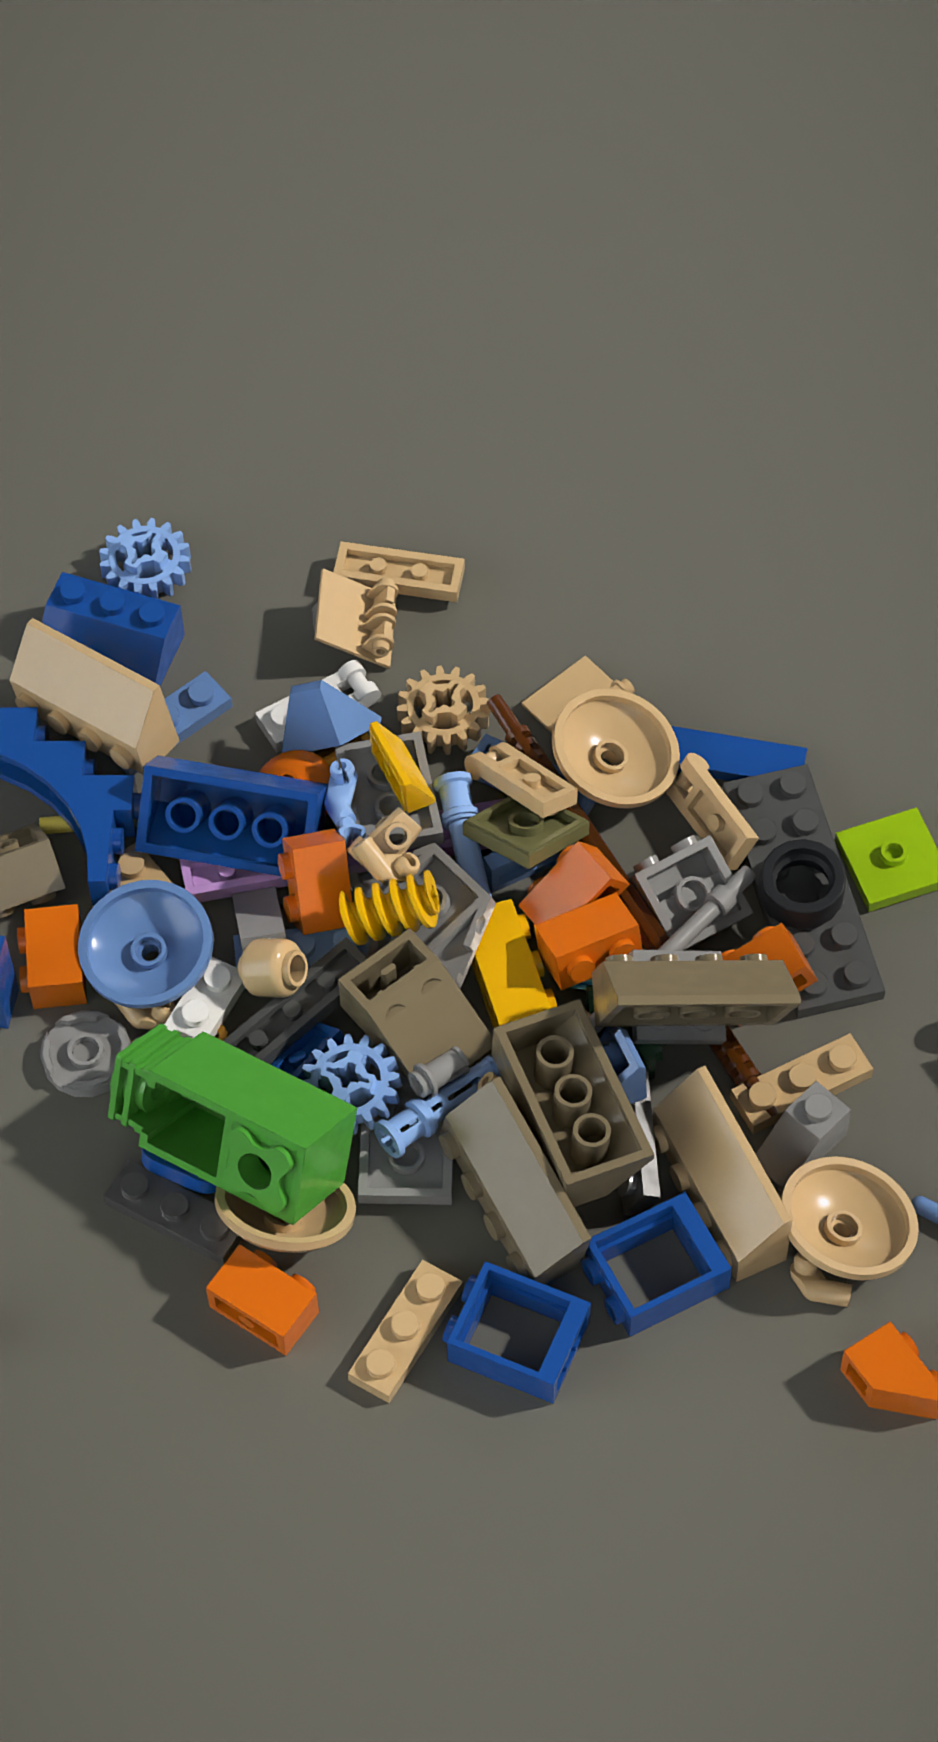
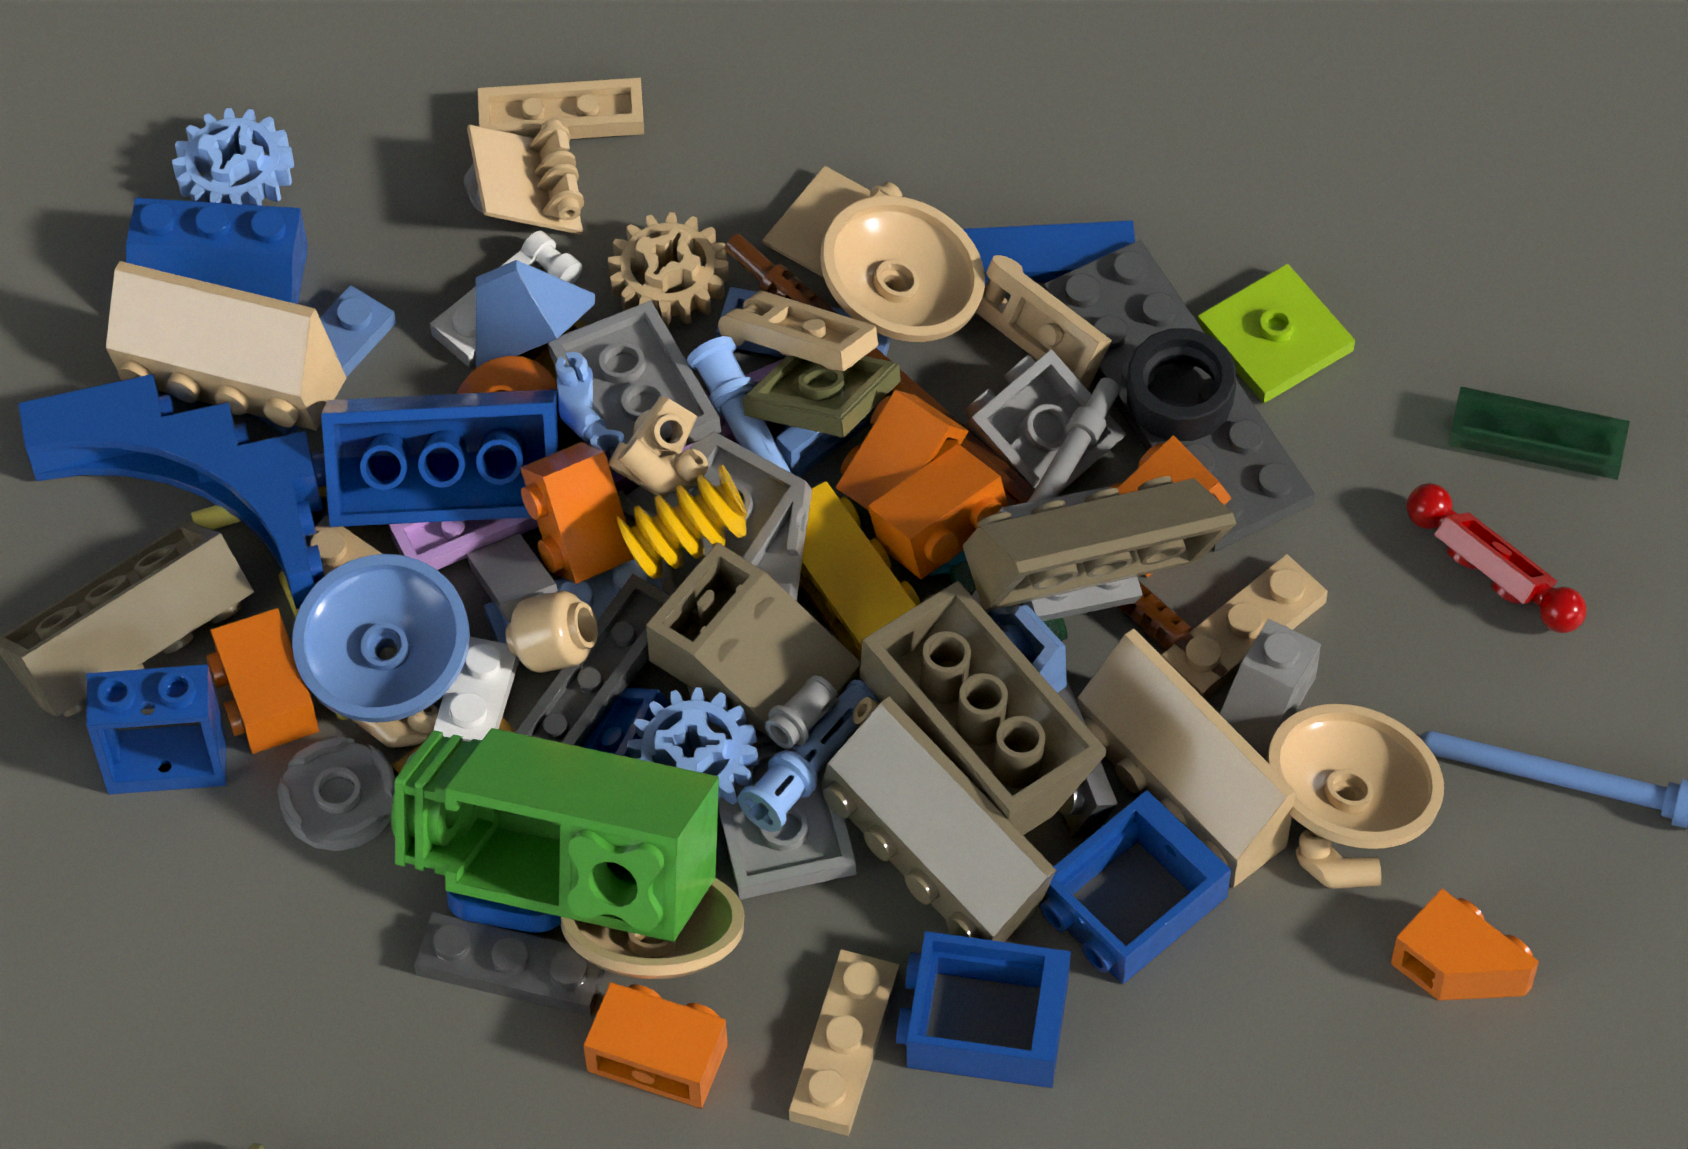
camera: 15 degrees left, 0 degrees up
(399, 769) = (640, 351): yellow slope -> none

